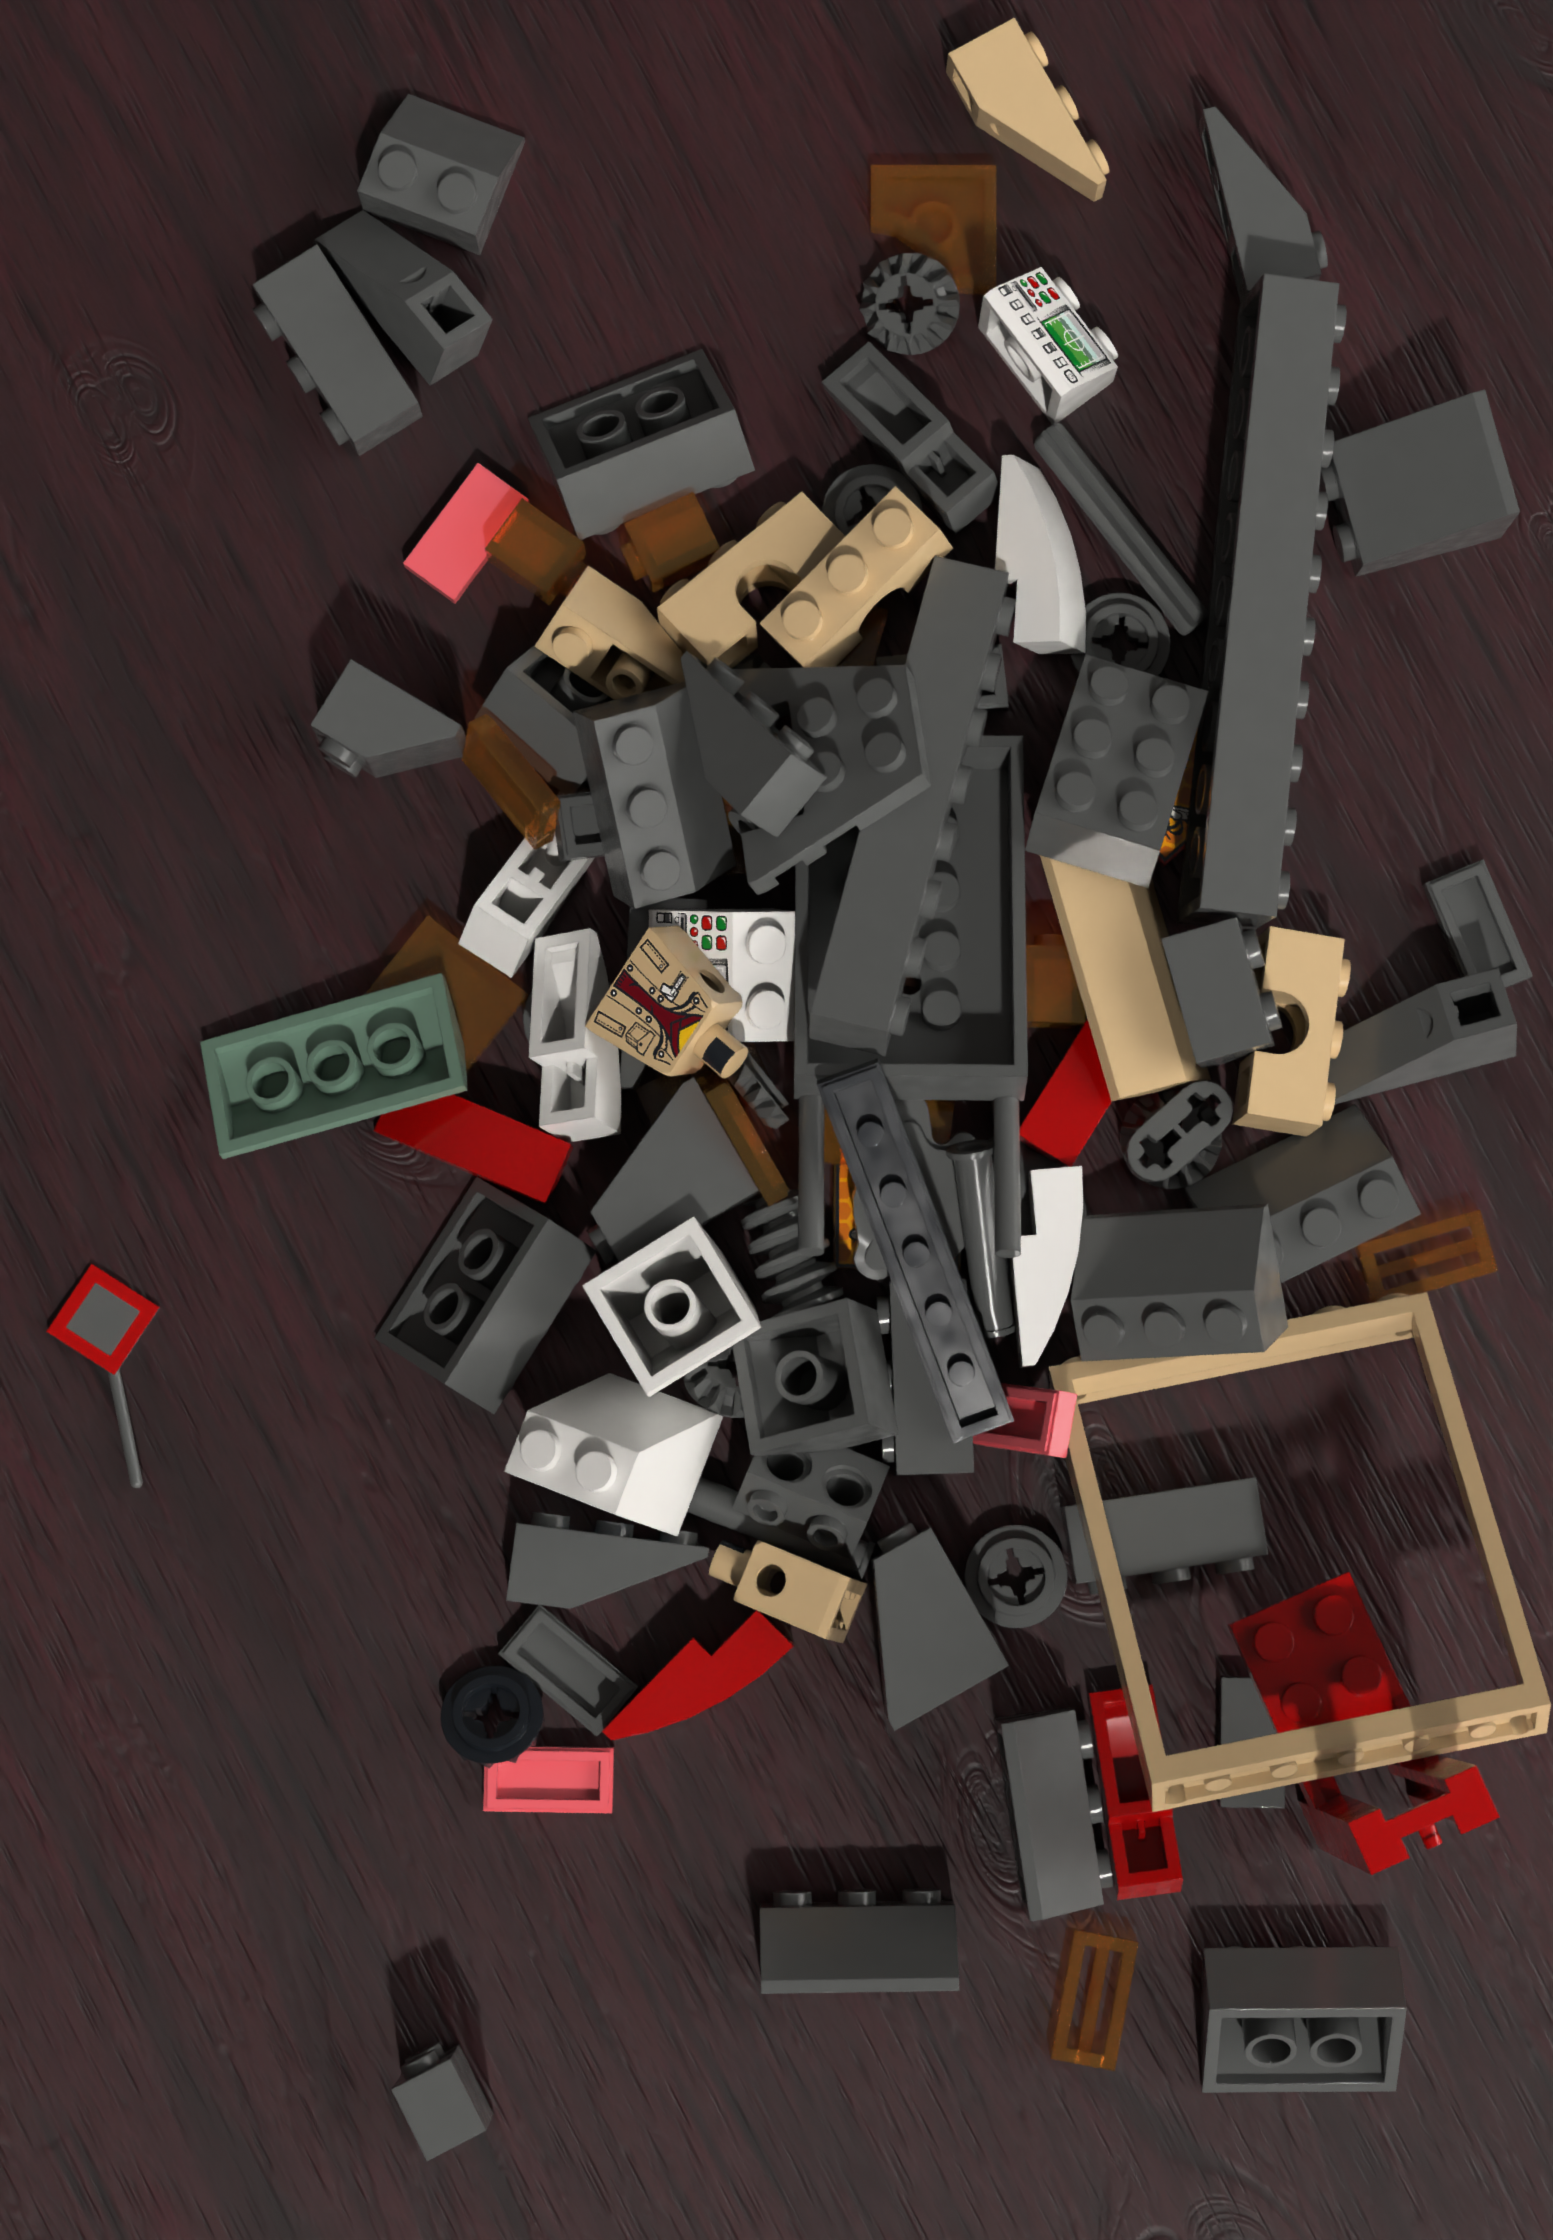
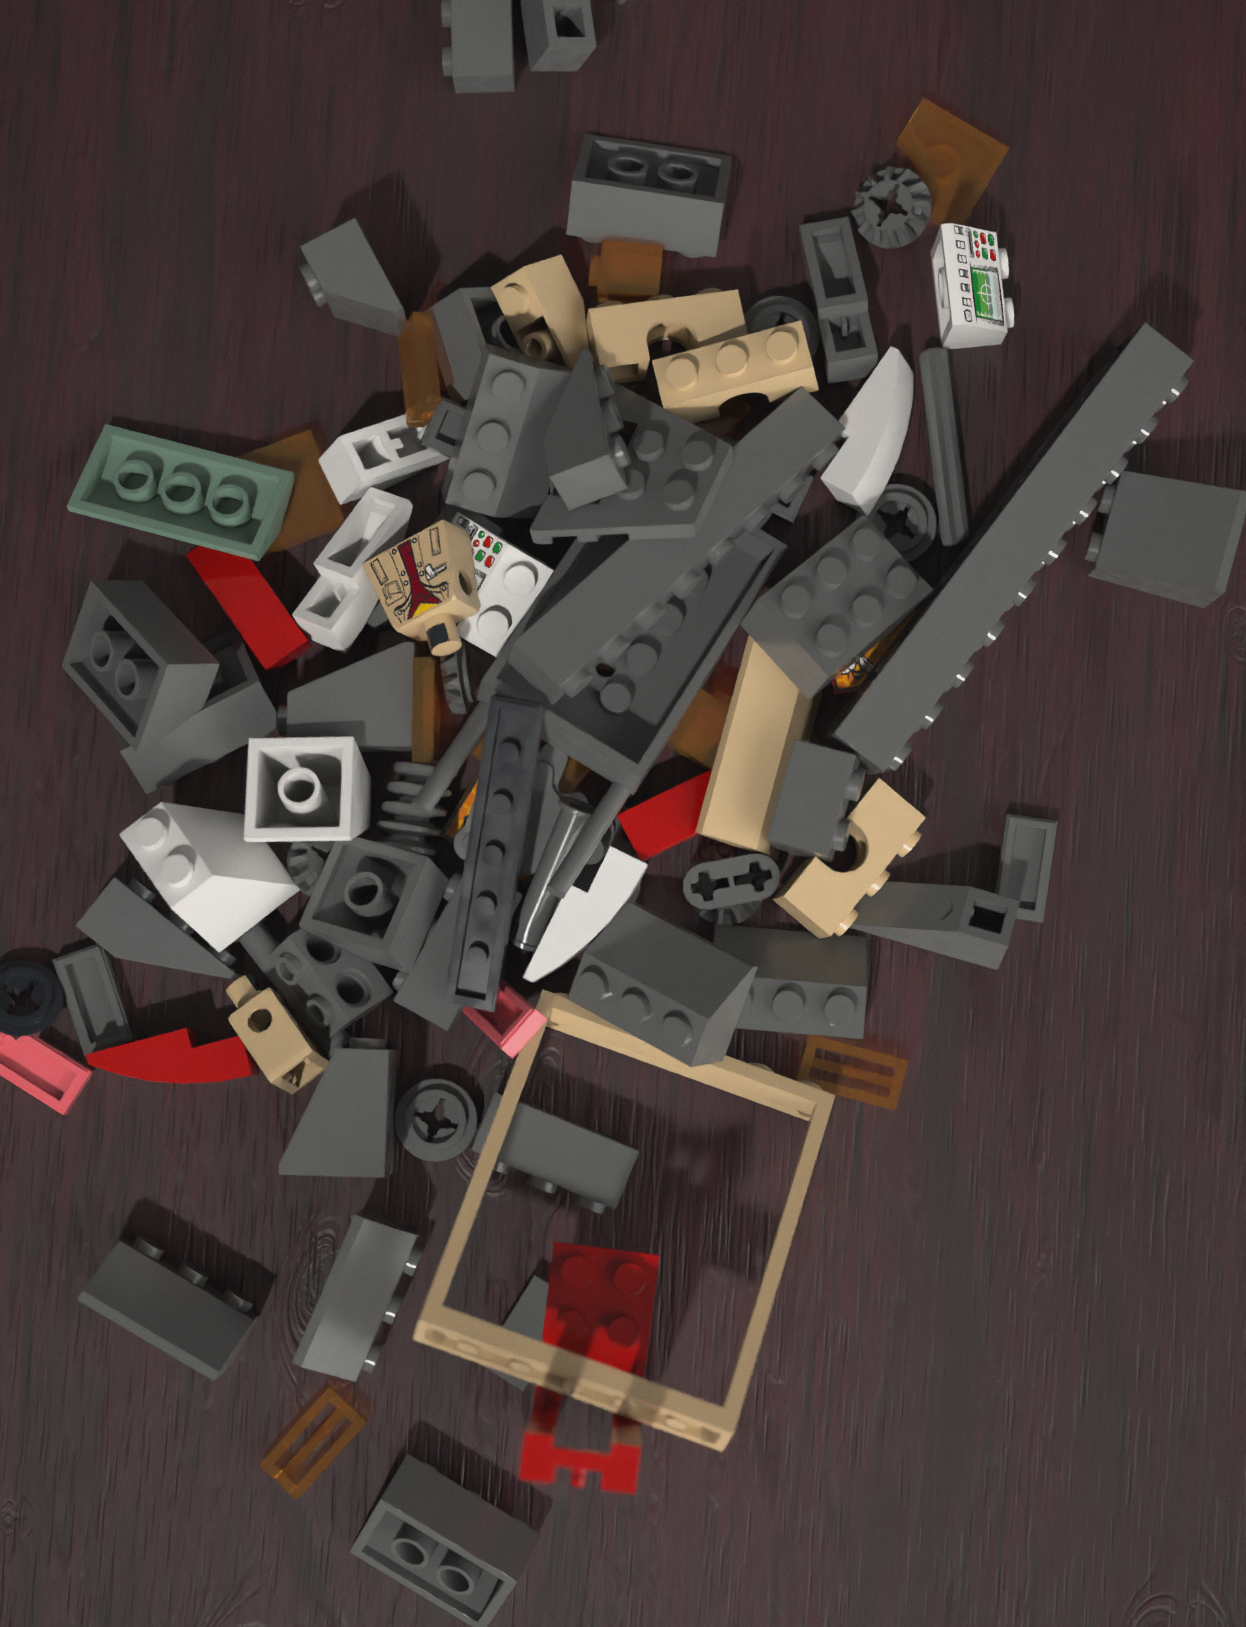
camera: 35 degrees right, 0 degrees up
(402, 1277) = (138, 661): none -> dark grey slope
(456, 541) = (495, 186): coral tile -> none
(537, 553) = (533, 225): clear orange brick -> none
(1017, 104) = (1048, 114): tan slope -> none
(1139, 1840) = (407, 1362): red slope -> none
(1257, 214) = (1170, 287): dark grey slope -> none

